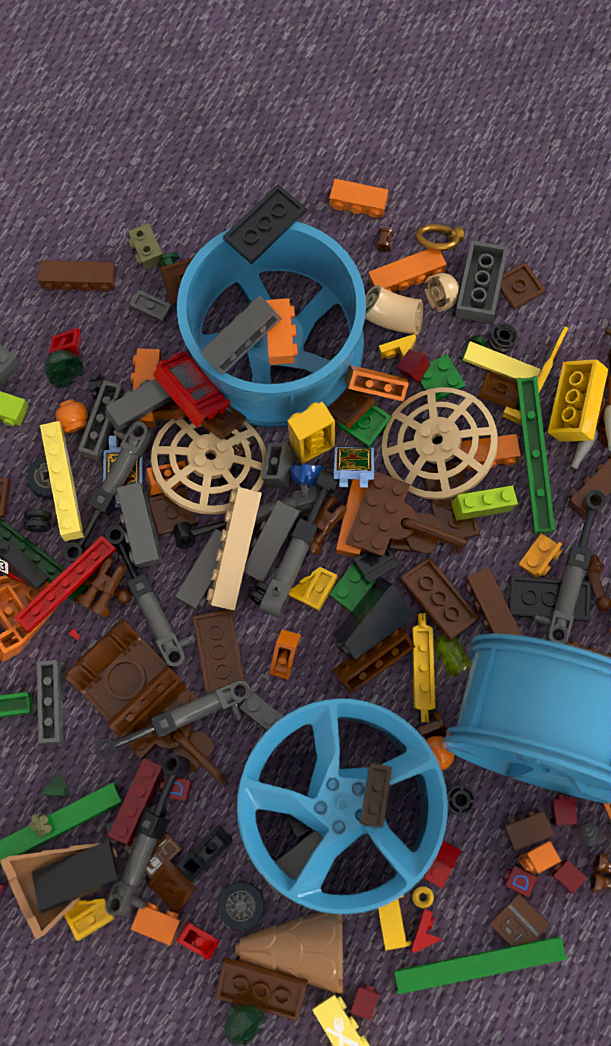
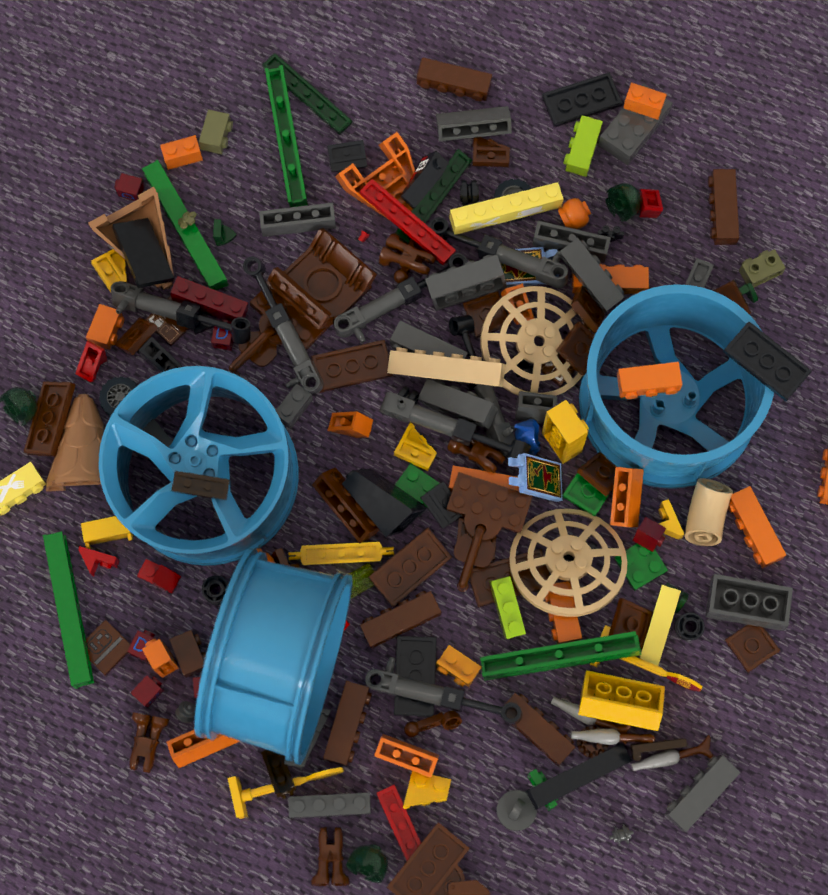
camera: 85 degrees right, 0 degrees up
(190, 388) = (592, 314): red door -> none
(240, 335) = (639, 341): dark grey brick -> none
(365, 1001) = (37, 508): dark red brick -> none
(384, 239) = (792, 503): reddish brown bush -> none
(430, 897) = (127, 553): yellow plate -> none
(442, 287) = (736, 563): tan cylinder -> none
(455, 236) = (802, 576): pearl gold piece -> none

